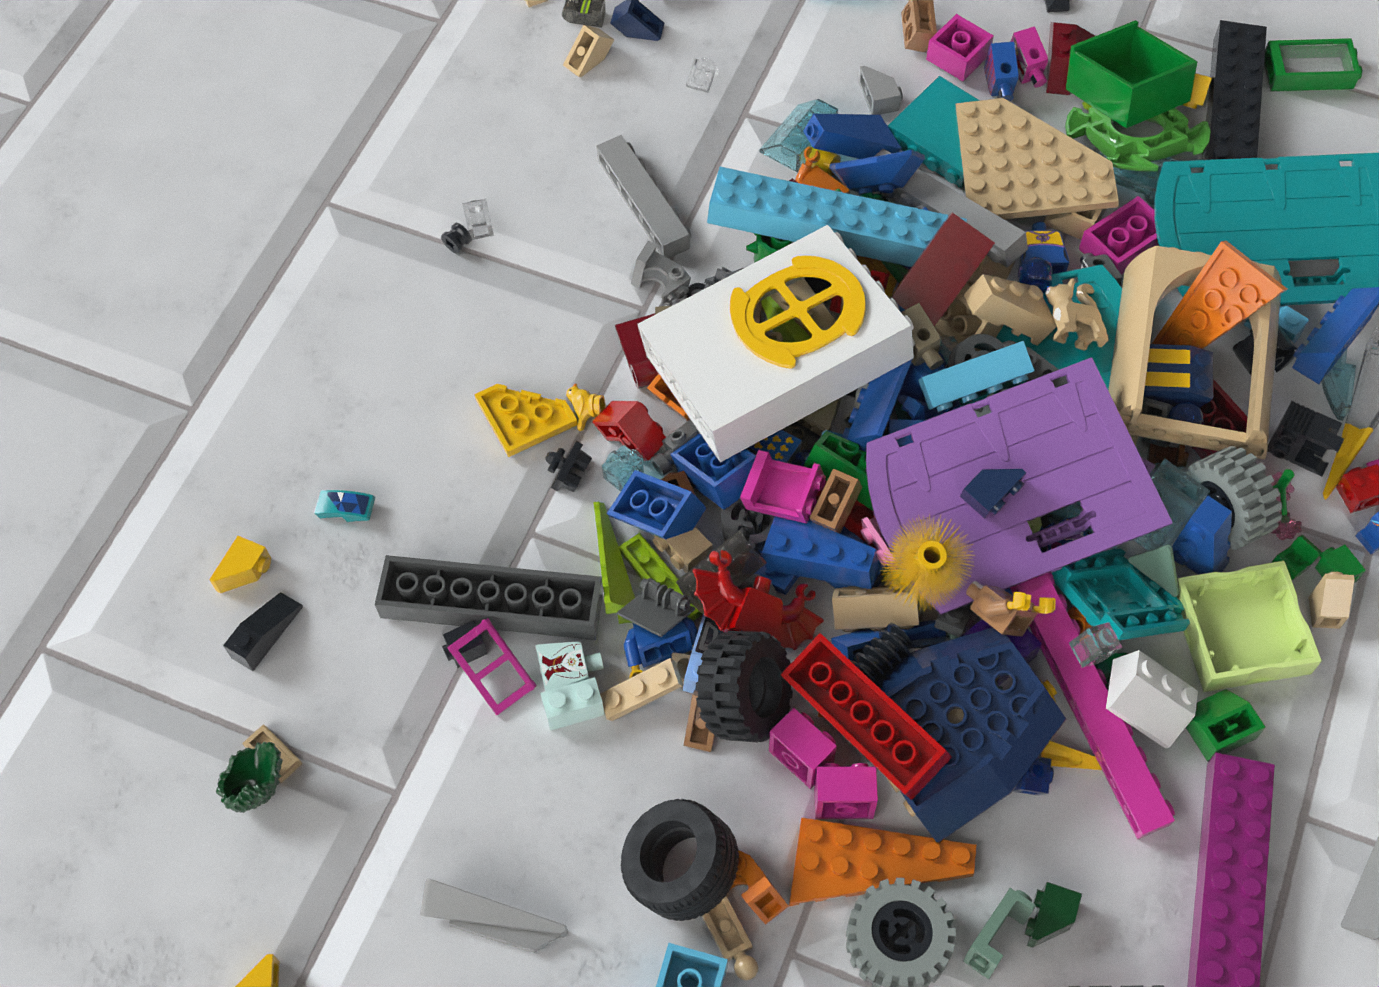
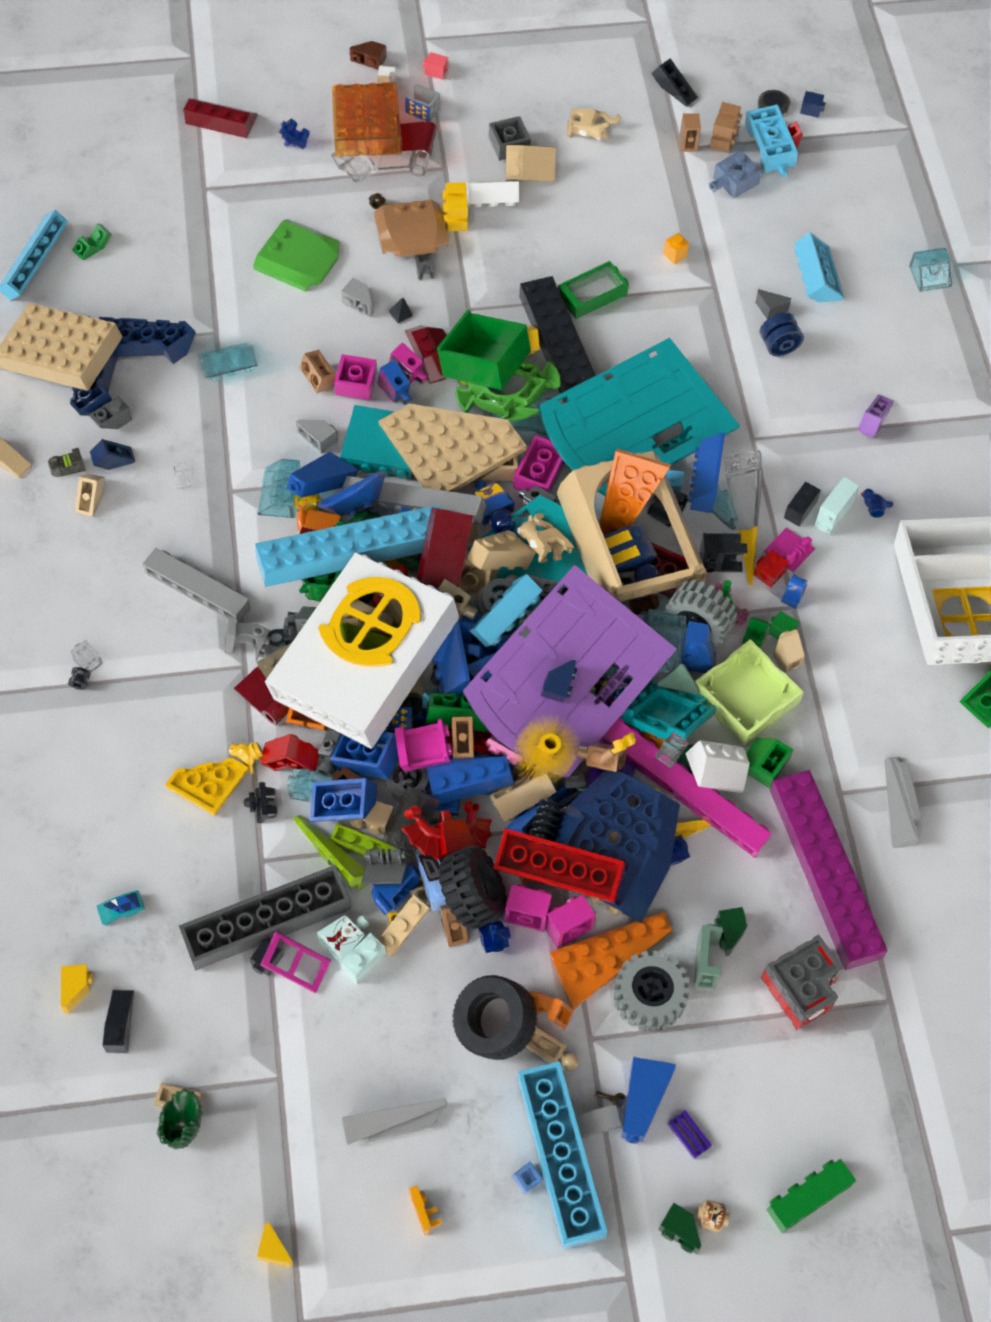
camera: 35 degrees left, 0 degrees up
(742, 761) = (494, 936): none -> clear blue brick

